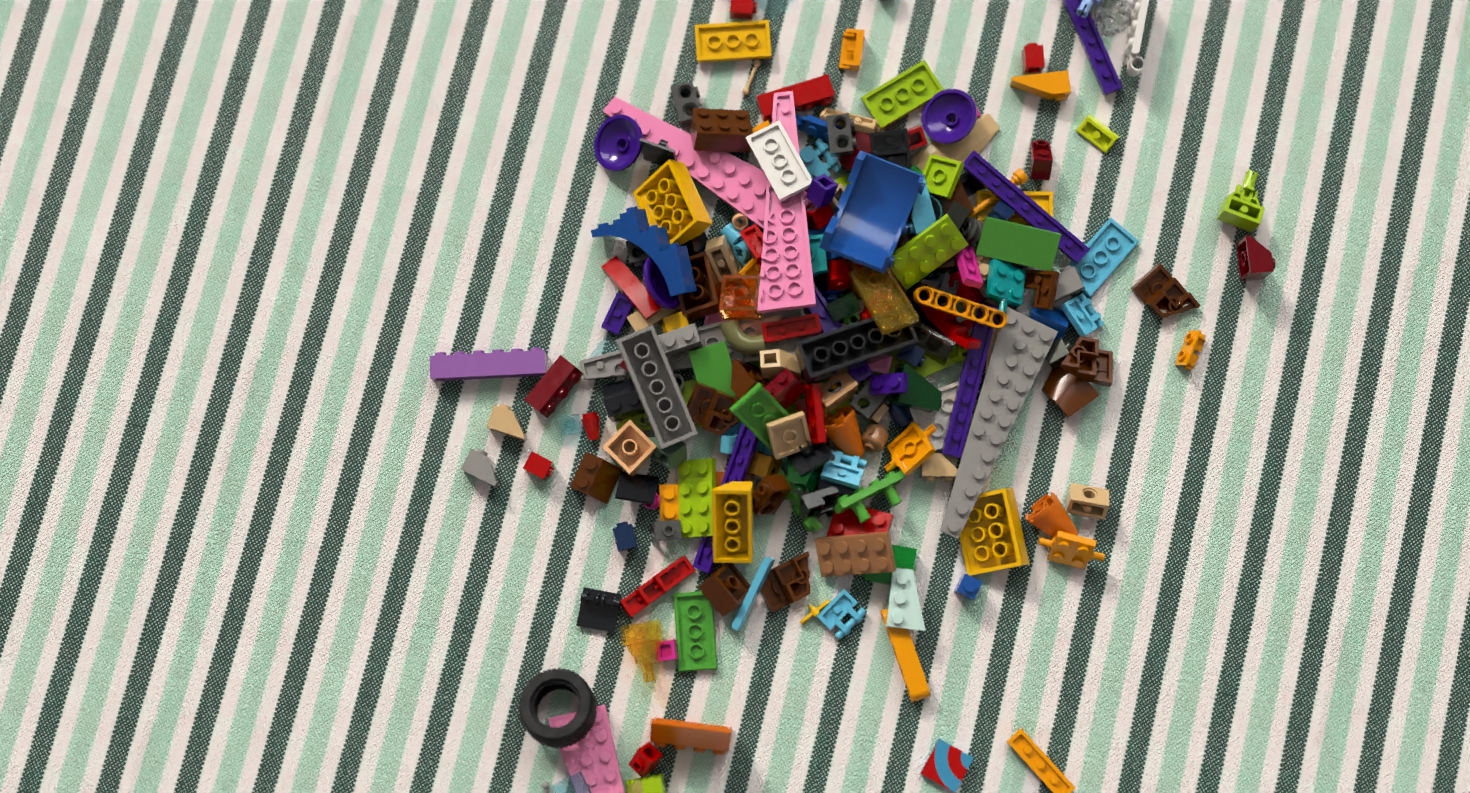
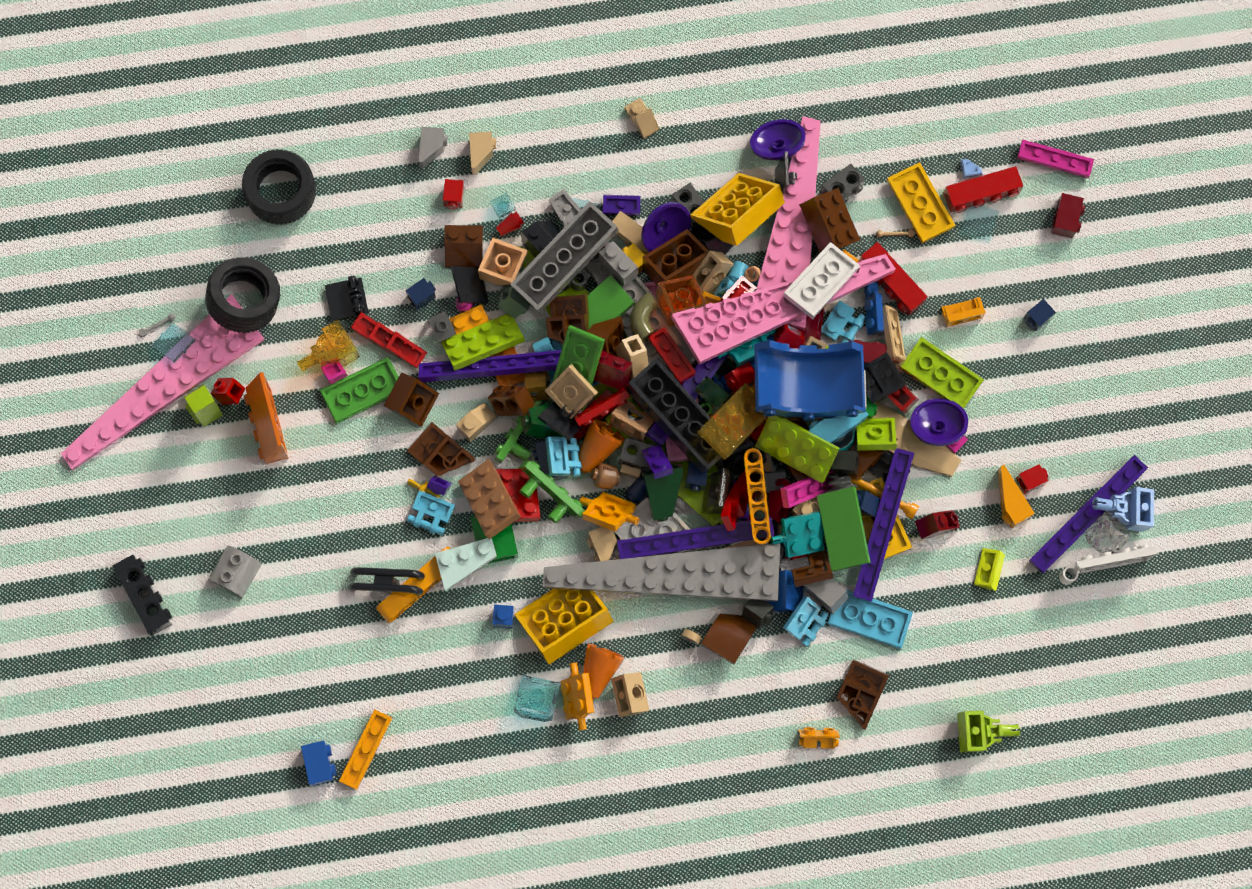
camera: 60 degrees right, 5 degrees down
(435, 618) = (279, 161): none -> black tyre
(488, 365) = (526, 114): medium lavender brick -> none
(539, 259) = (642, 118): none -> tan slope
(554, 386) = (530, 176): dark red brick -> none
(631, 287) = (654, 198): slope -> none
(670, 258) = (688, 220): blue arch -> none
(733, 522) = (471, 378): yellow slope -> none
(753, 593) = (416, 424): medium azure tile -> none
(771, 535) = (476, 422): none -> tan slope
(818, 503) = (522, 445): black slope -> none
(819, 595) = (439, 485): none -> dark purple plate
(821, 190) = (809, 327): dark purple brick -> none
(836, 135) = (870, 324): dark grey brick -> none
(892, 682) = (385, 580): none -> black piece
(946, 765) = (330, 664): tile -> none
(1054, 423) = (691, 636): none -> tan tile
(1056, 587) = (536, 698): none -> clear light blue slope
(1090, 362) = (762, 642): reddish brown slope -> none
(1254, 260) = (930, 762): dark red slope -> none

